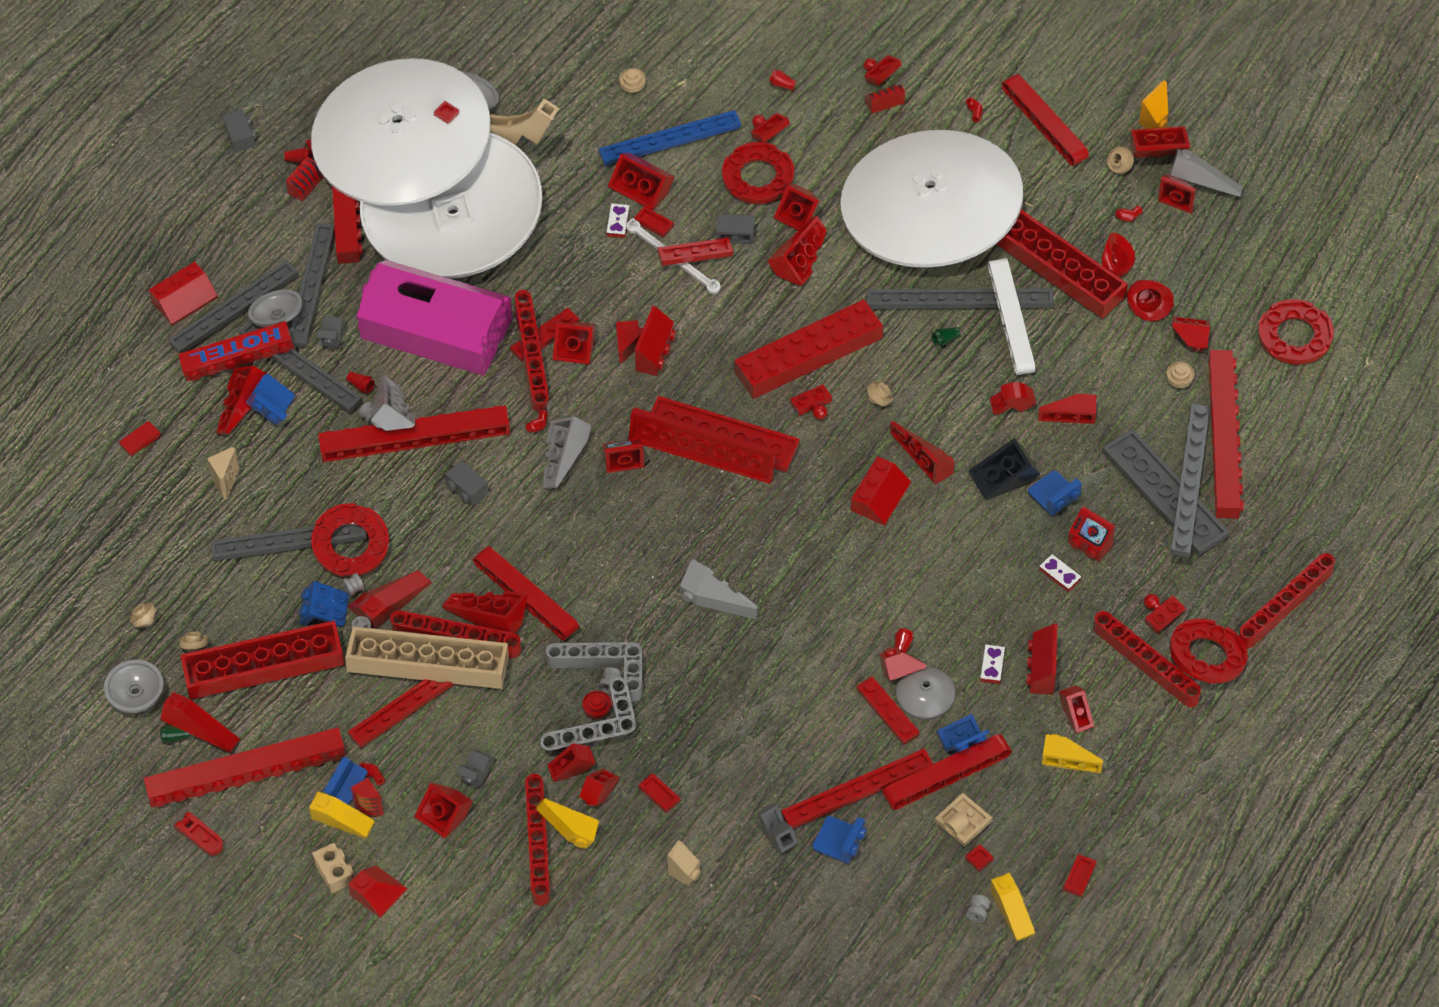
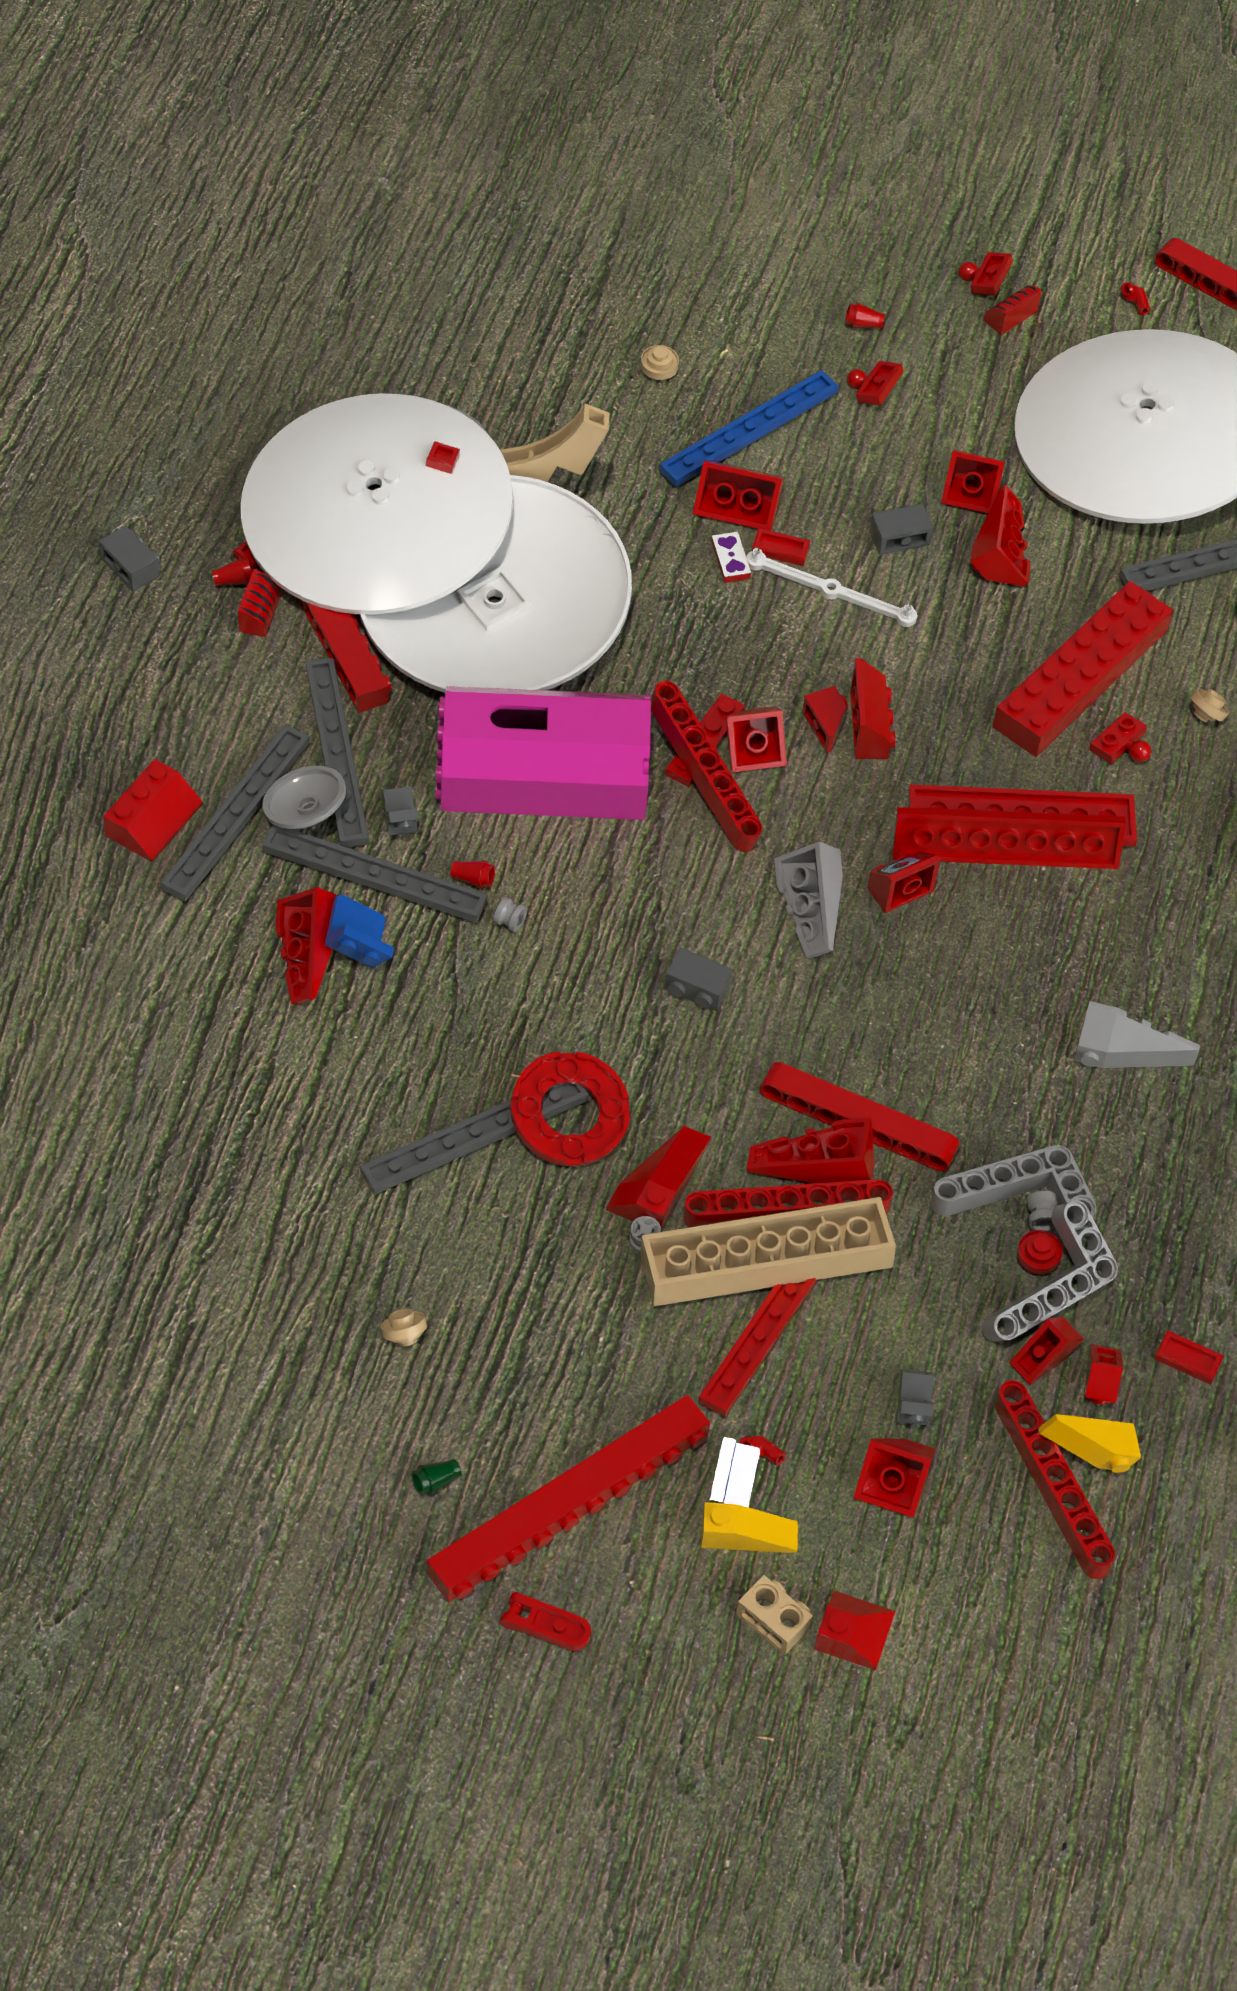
camera: 25 degrees left, 0 degrees up
(130, 678) = (346, 1404): light grey dish -> none
(140, 438) = (179, 1041): red tile -> none
(143, 615) = (308, 1306): tan plate -> none
(197, 721) = (460, 1446): red wedge -> none
(224, 470) = (333, 1056): tan slope -> none
(236, 351) = (274, 874): red brick -> none
(262, 660) = (522, 1324): red brick -> none
(323, 604) = (570, 1213): blue bracket -> none
(353, 584) = (602, 1173): light grey wheel -> none
(367, 799) = (783, 1491): red brick -> none
(389, 408) = (543, 900): light grey wedge -> none
(425, 433) = (586, 928): red brick -> none
(538, 424) = (758, 867): red arm -> none
(695, 251) = (862, 573): red plate -> none
(757, 152) = (892, 417): red plate -> none

